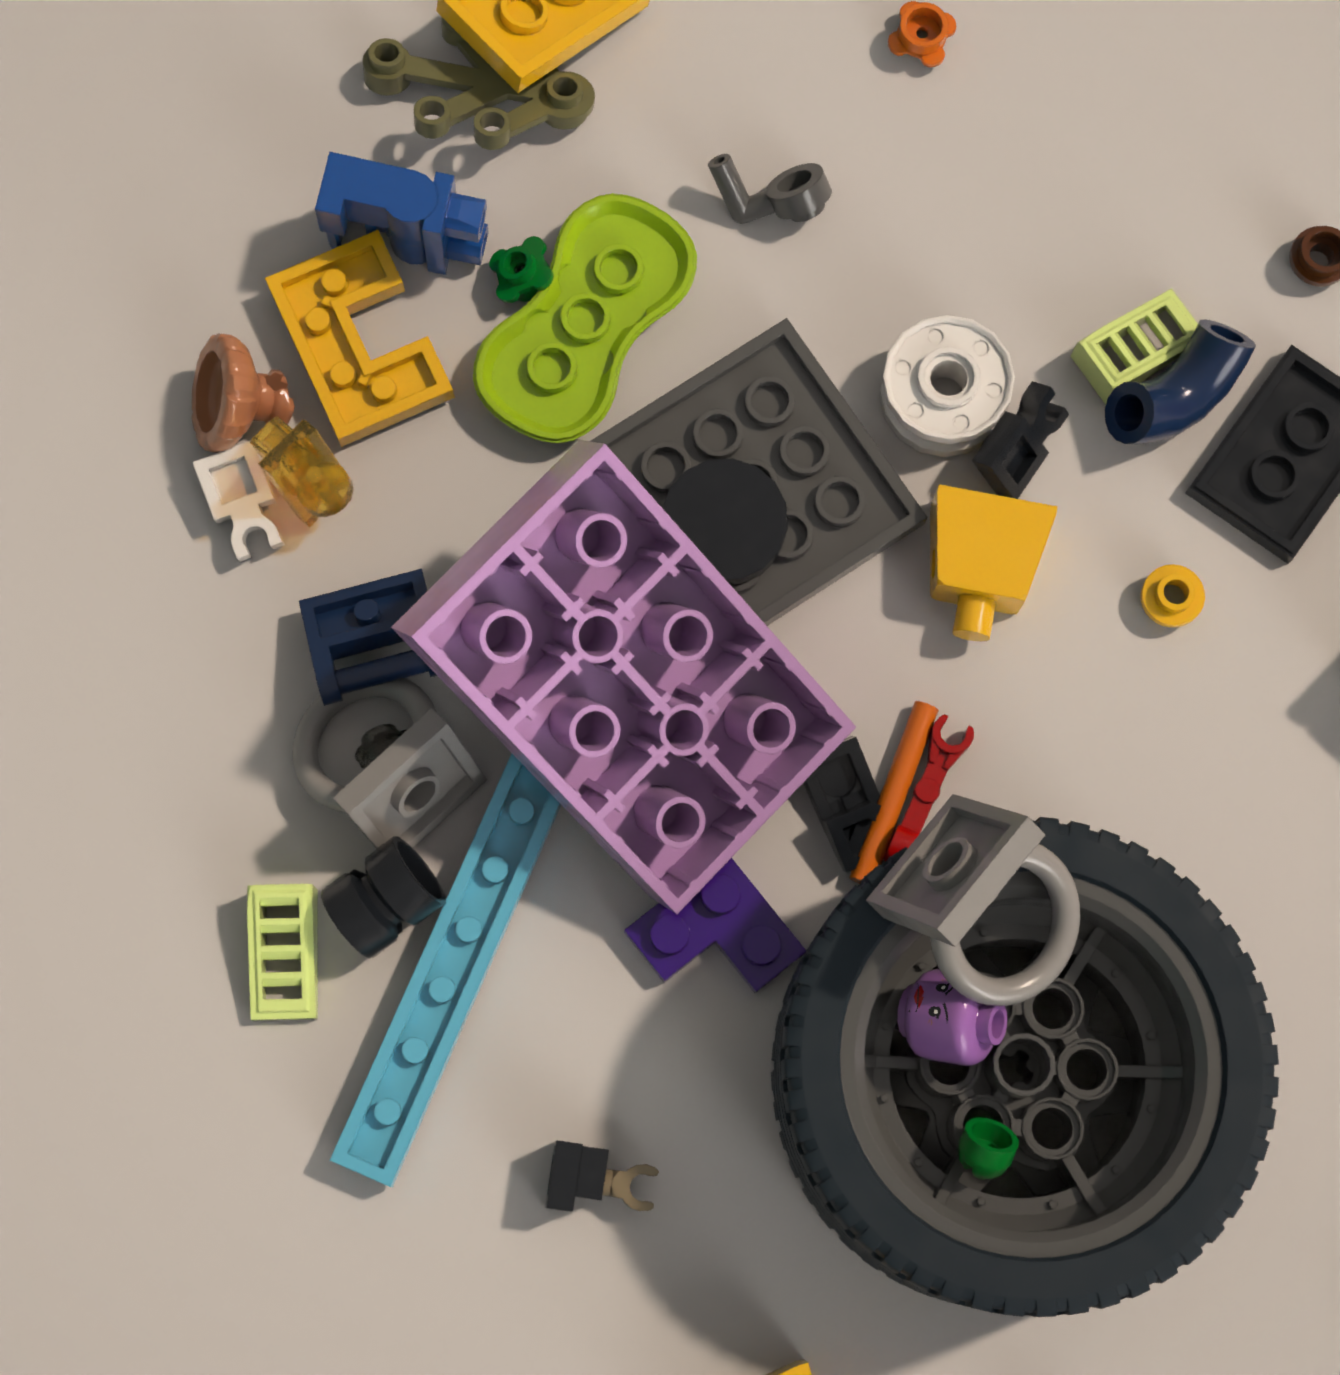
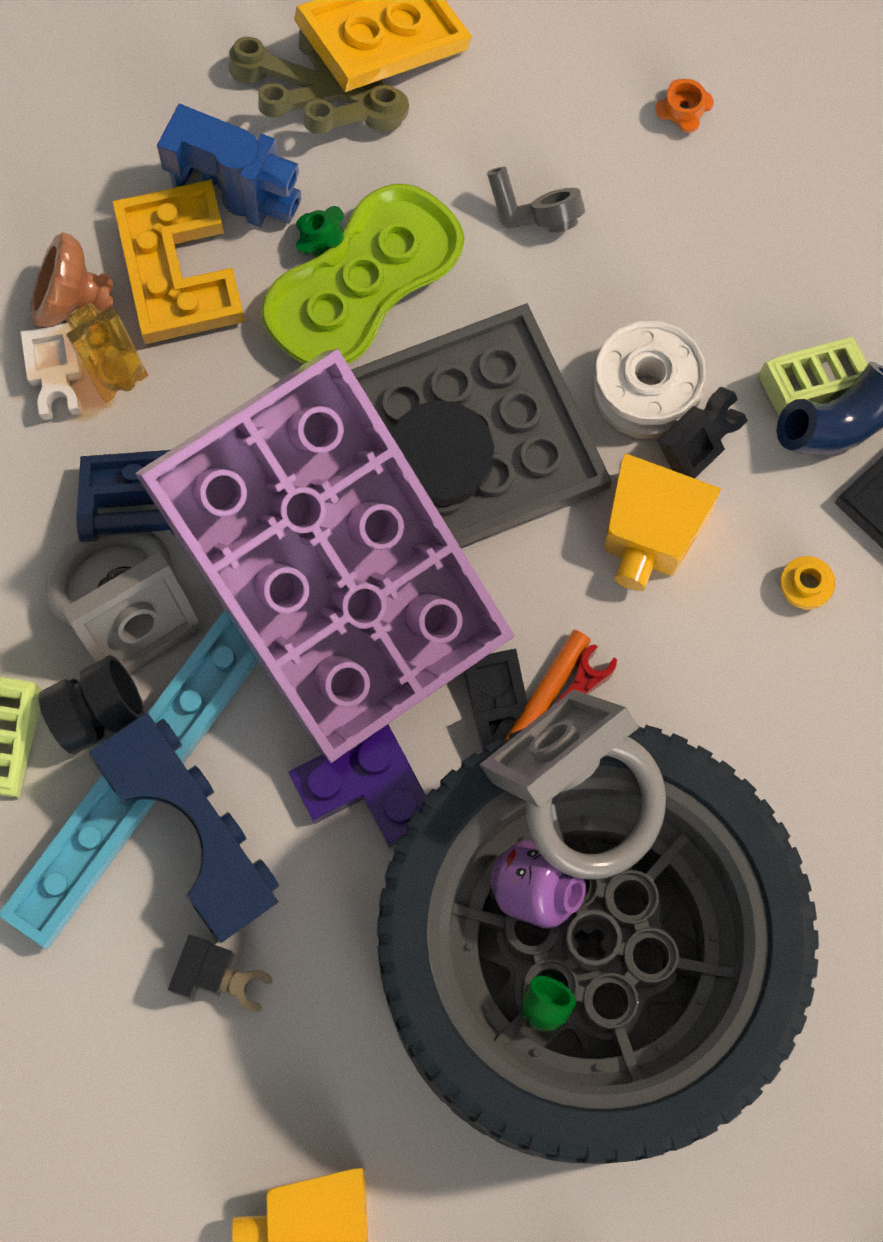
camera: 15 degrees right, 5 degrees down
(585, 1075) = (144, 766): none -> dark blue arch

